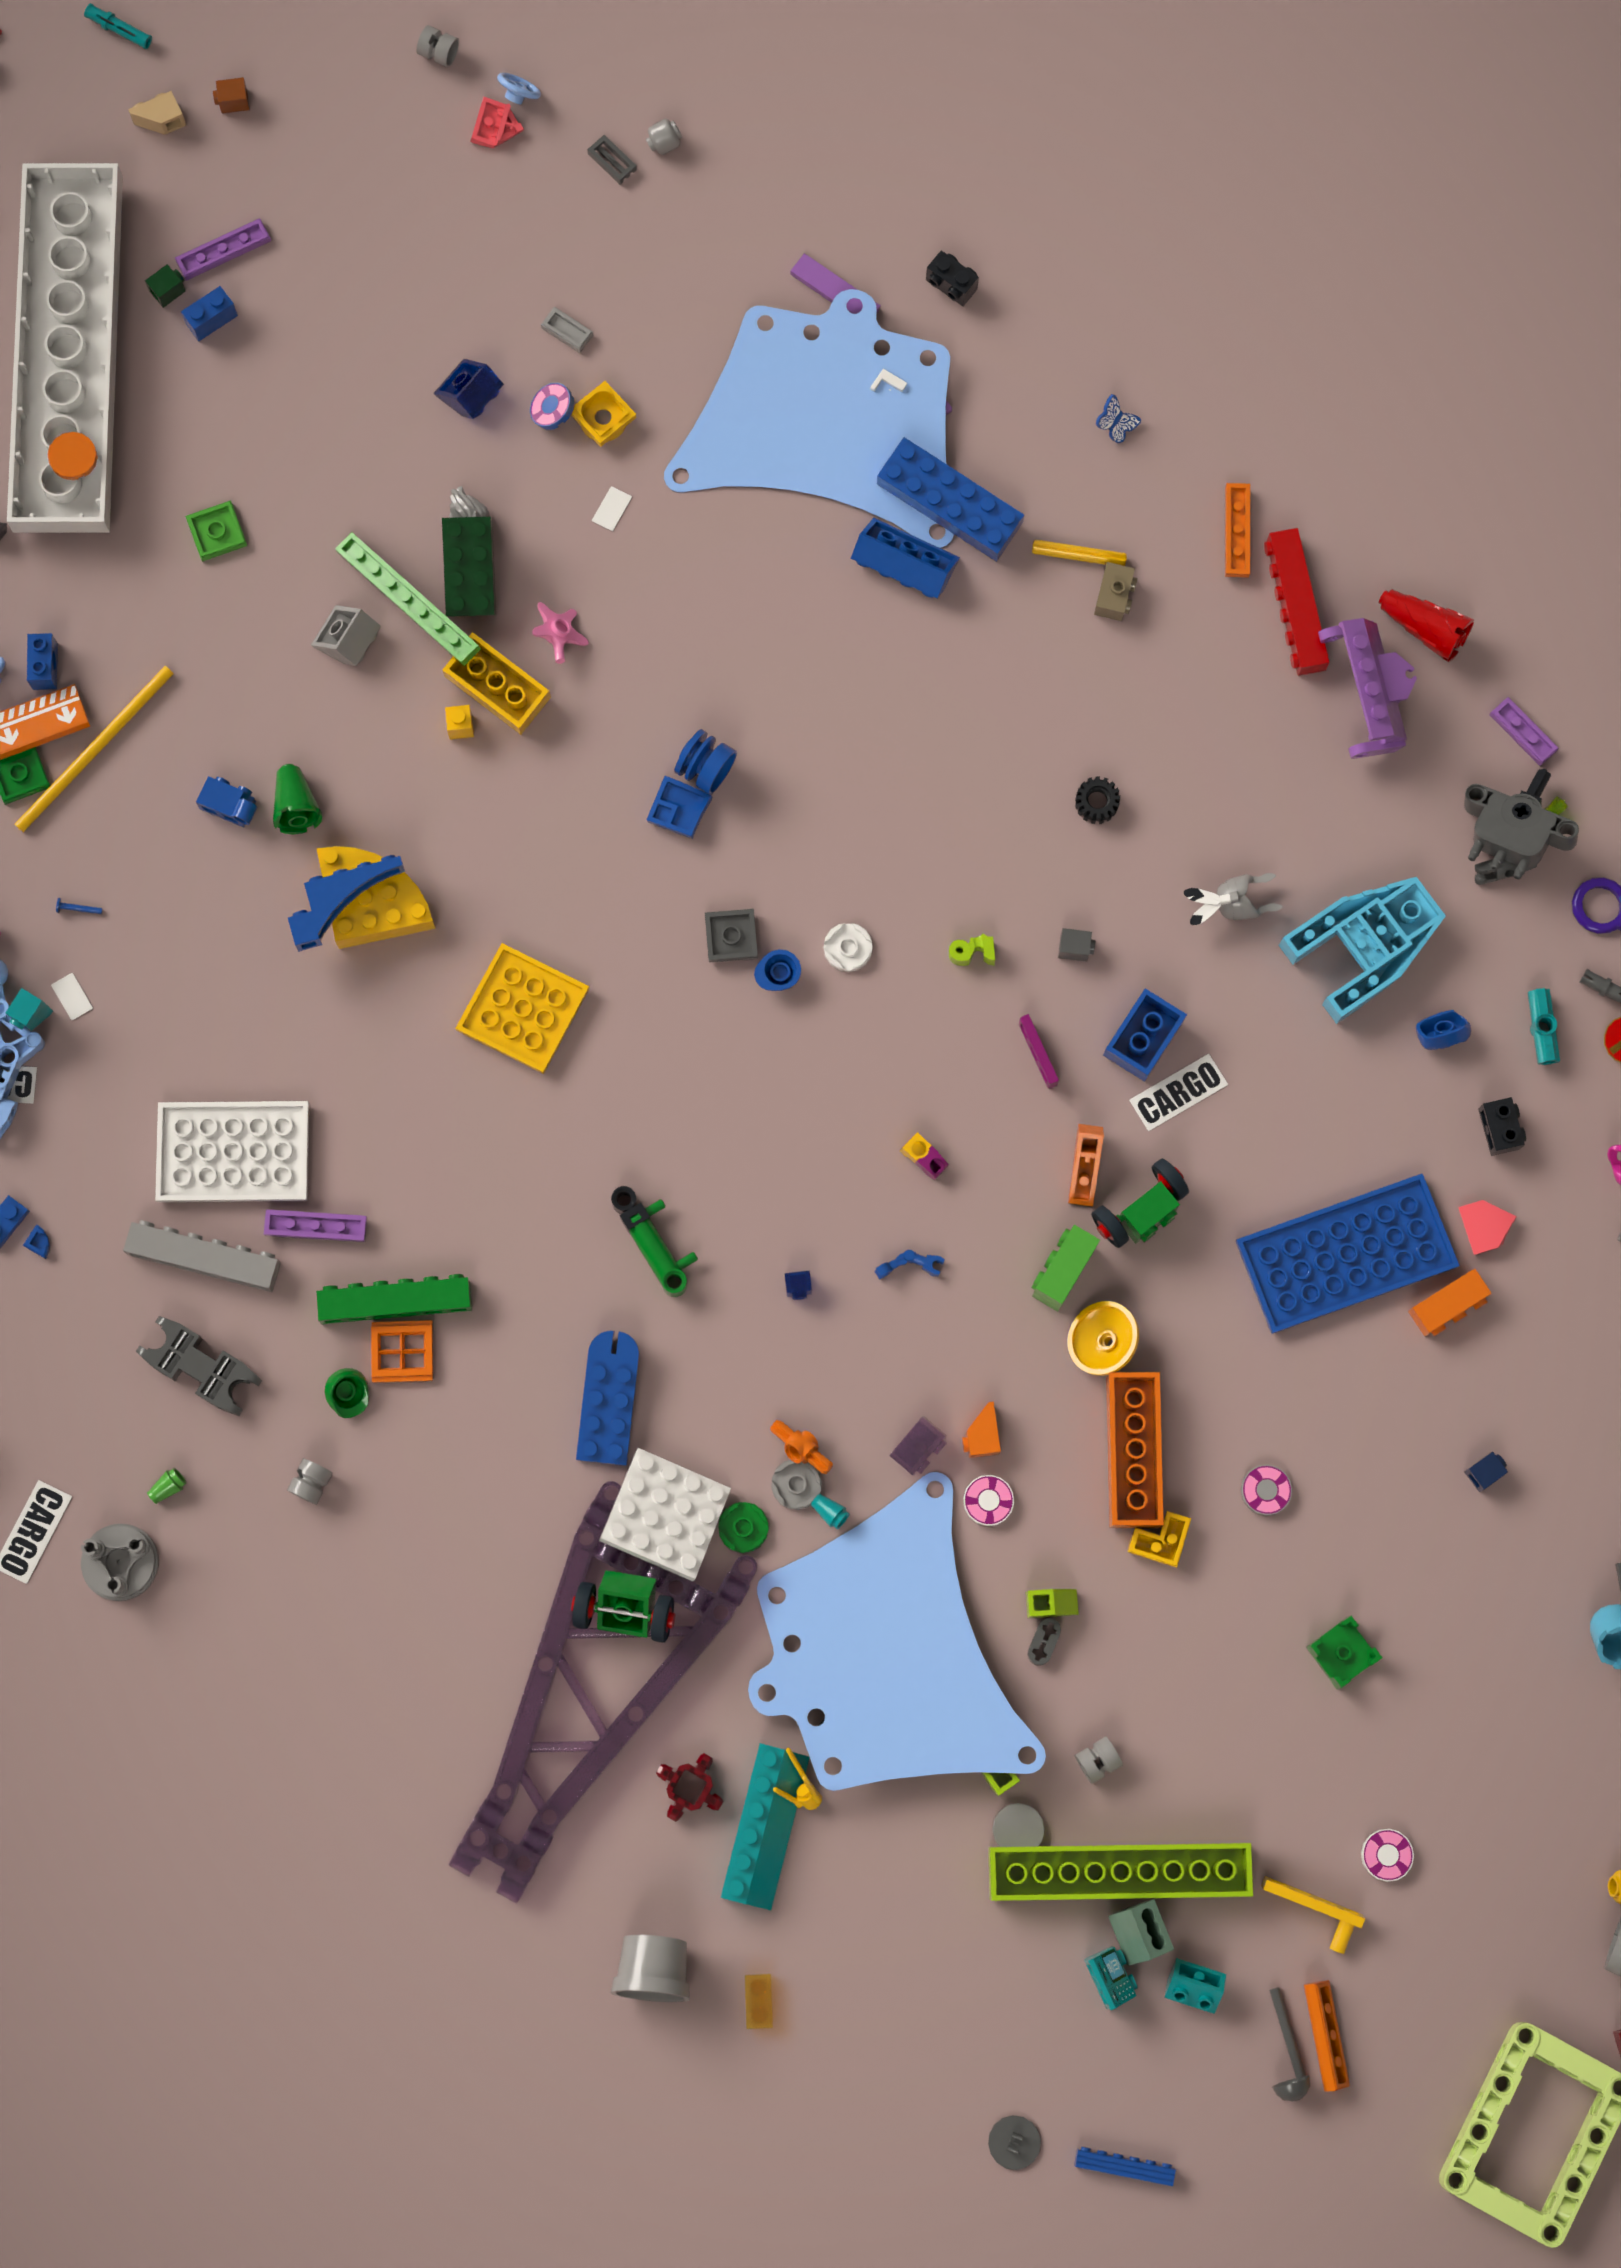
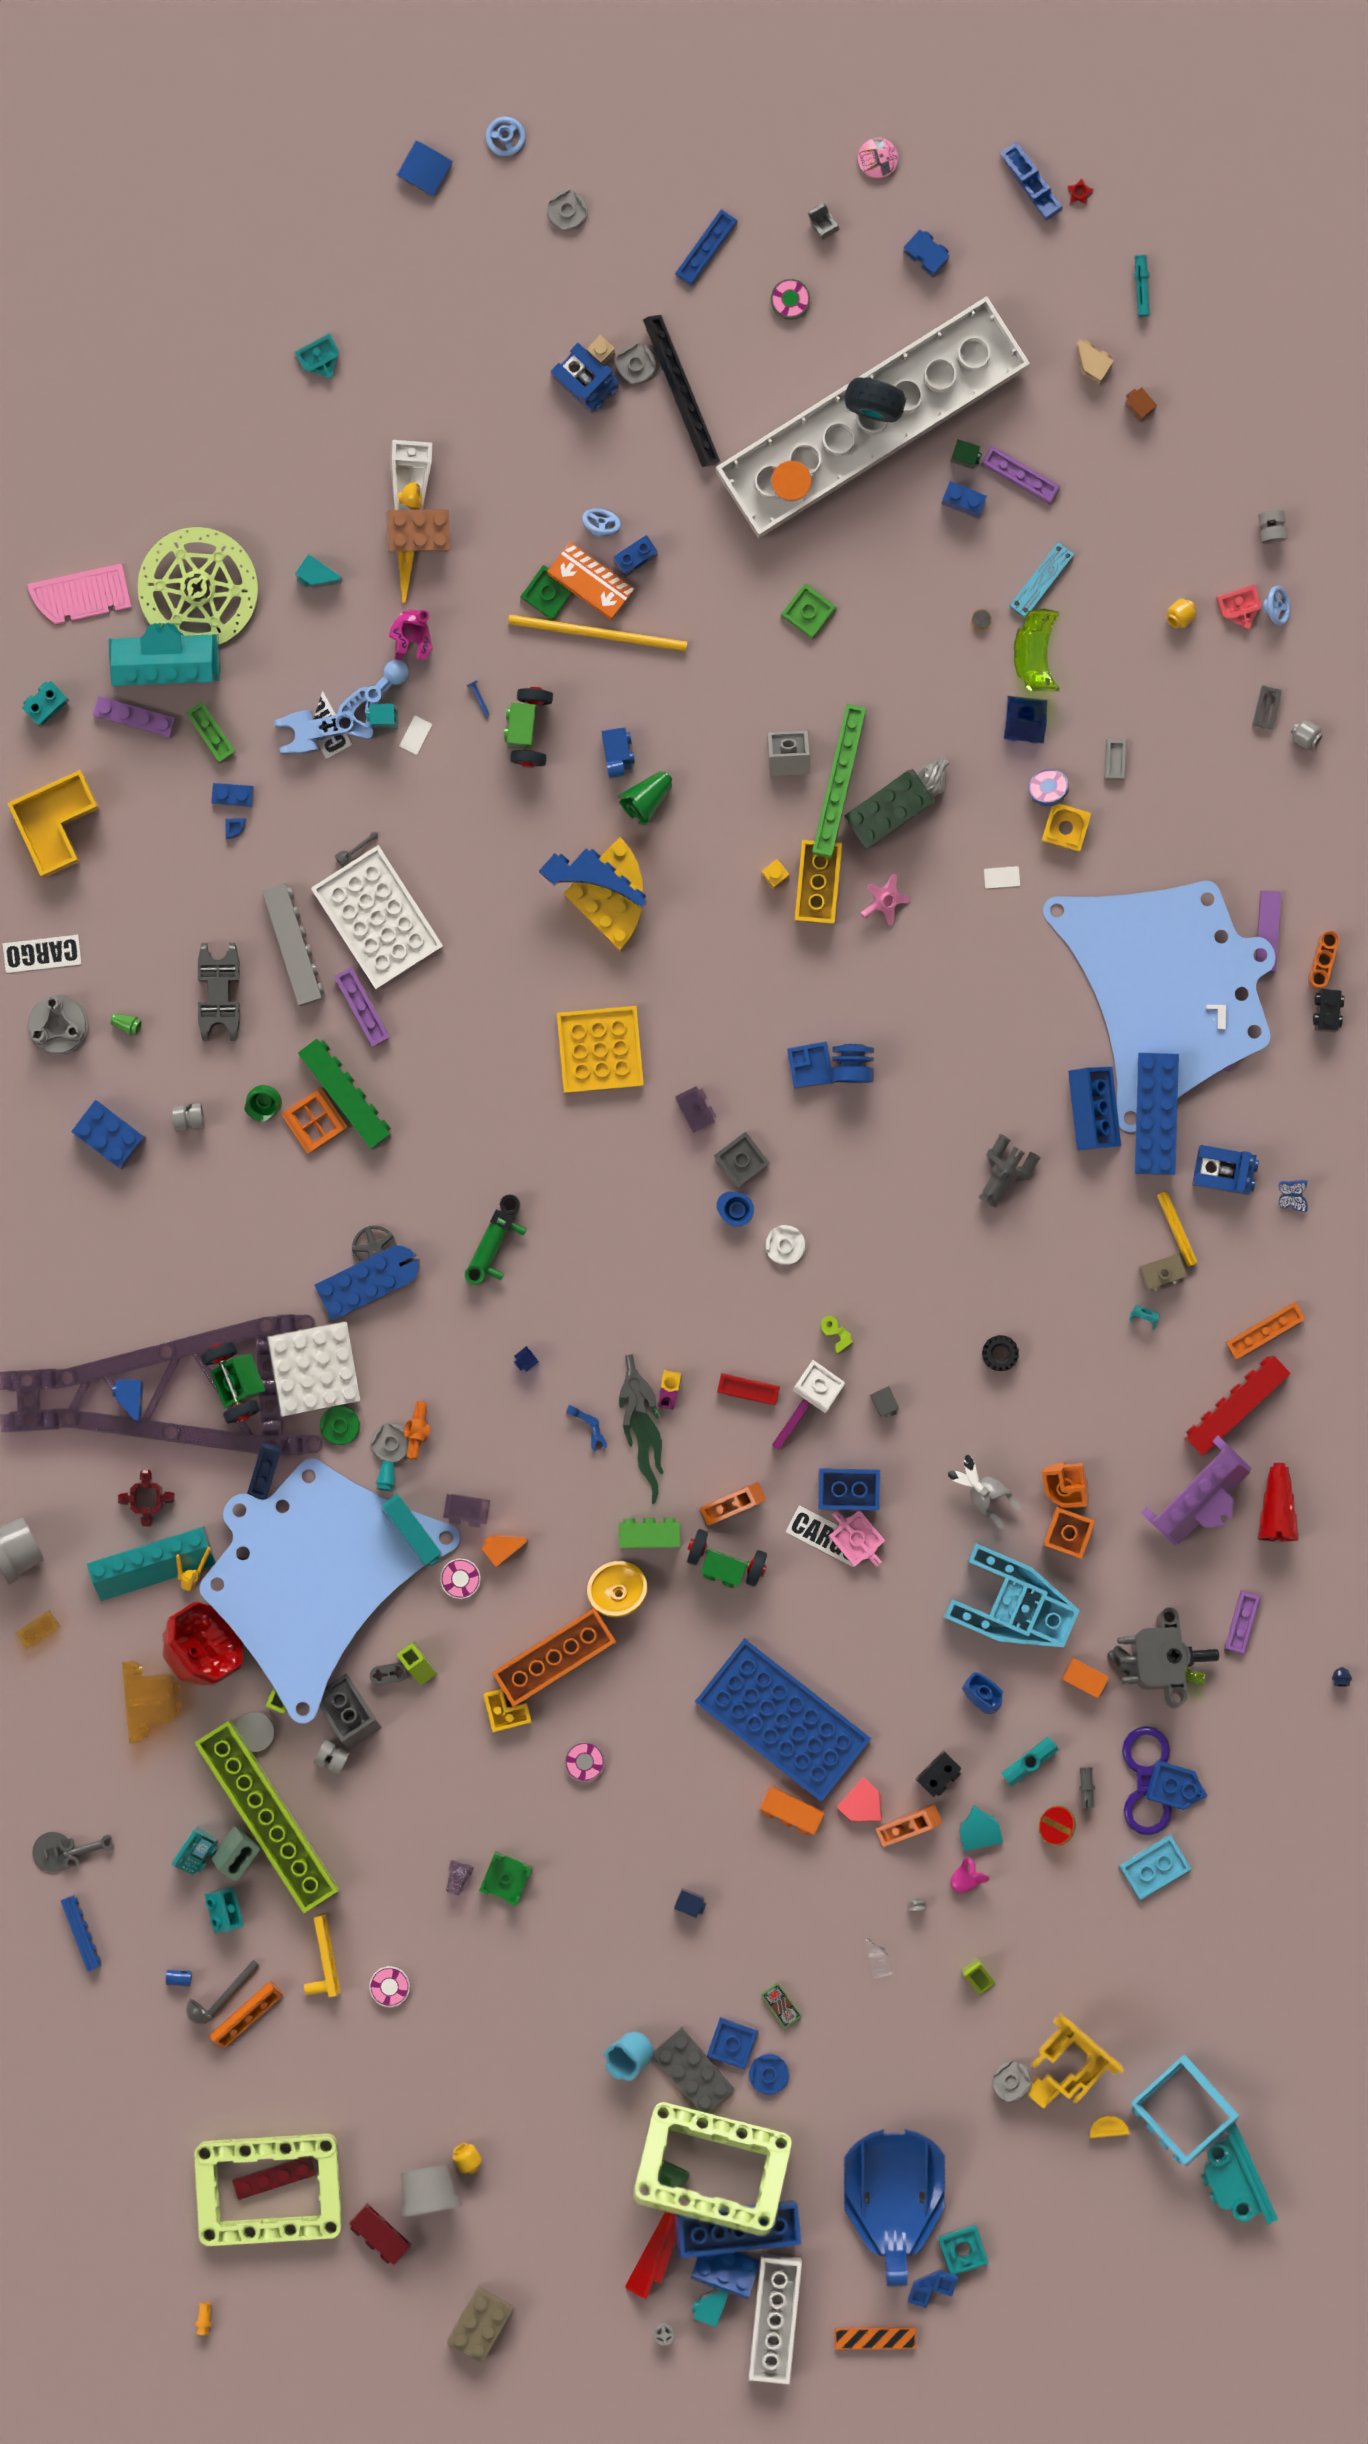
camera: 60 degrees right, 10 degrees up
(47, 320) = (875, 399): none -> black wheel
(136, 878) = (522, 726): none -> brick
(147, 1147) = (345, 857): none -> dark grey hinge
(271, 1579) = (108, 1134): none -> blue brick
(340, 292) = (1041, 580): none -> medium azure tile
(340, 371) = (981, 619): none -> tile
(401, 341) = (1031, 650): none -> clear neon green windscreen
(464, 180) = (1181, 613): none -> yellow head
(568, 1733) = (129, 1396): none -> blue slope
(575, 1371) = (373, 1246): none -> dark grey wheel
(648, 949) = (695, 1109): none -> clear purple brick
(741, 1636) = (264, 1471): none -> dark blue plate
(889, 1824) = (201, 1645): none -> red rock
(897, 243) = (1329, 952): none -> orange beam
(904, 1517) = (411, 1530): none -> teal slope
(912, 1924) = (148, 1700): none -> clear yellow brick
(914, 679) = (1006, 1170): none -> dark grey wheel
(933, 1208) = (641, 1423): none -> piece
(975, 1075) = (748, 1389): none -> red plate
(1017, 1000) = (818, 1386): none -> white tile
(1028, 2121) = (70, 1853): none -> dark grey bar
(1060, 1711) = (348, 1712): none -> dark grey slope
(1062, 455) = (1242, 1178): none -> blue brick
(1148, 633) = (1145, 1314): none -> teal piece
(1200, 1060) = (856, 1538): none -> bright pink plate
(1240, 2086) = (178, 1977): none -> blue piece
(1276, 814) = (1066, 1484): none -> orange brick
(1308, 1699) = (460, 1873): none -> clear purple plate
(1327, 842) = (1068, 1532): none -> orange brick
(1488, 918) = (1085, 1677): none -> orange panel
(1526, 2119) = (274, 2177): none -> dark red plate
(1538, 1191) = (909, 1825): none -> orange slope
(1586, 1123) = (979, 1830): none -> teal slope

